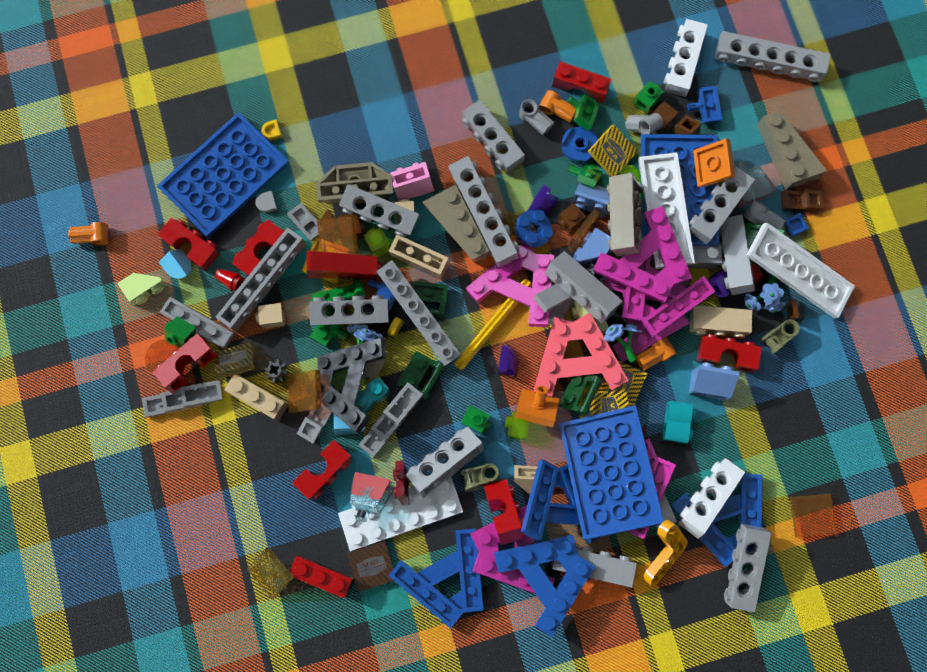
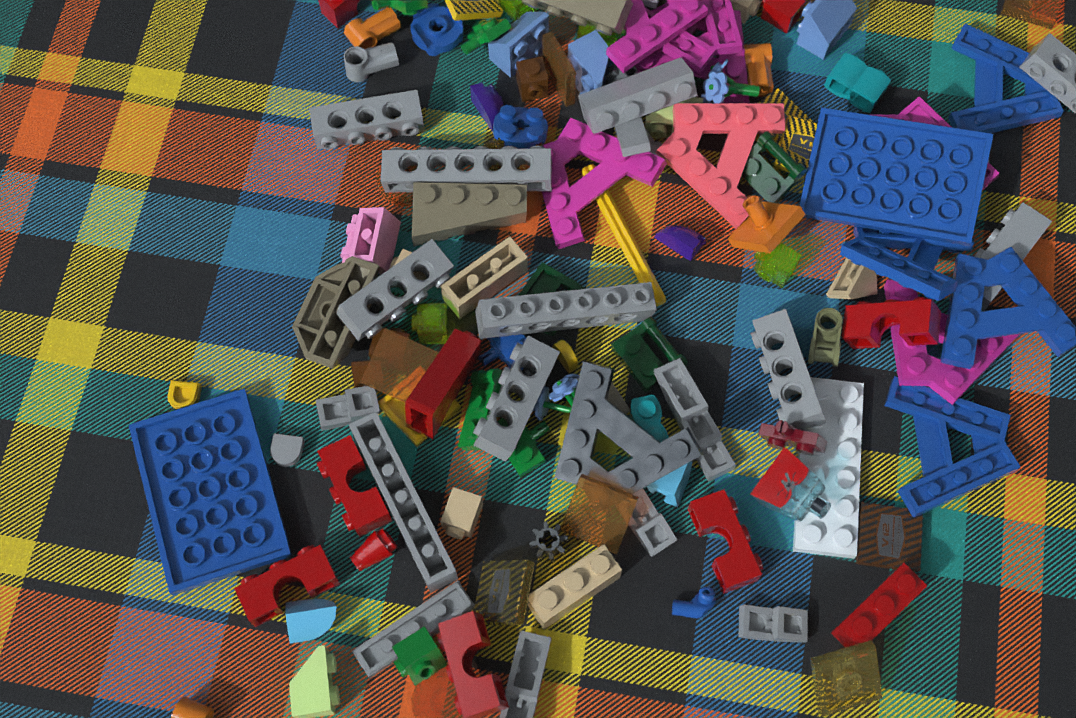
camera: 65 degrees left, 10 degrees down
(277, 471) = (697, 606): none -> blue arm
(288, 519) = (773, 624): none -> light grey slope
(476, 420) = (745, 308): green brick -> none
(675, 545) = (1022, 165): light orange beam -> none
(698, 524) = (974, 85): white brick -> none

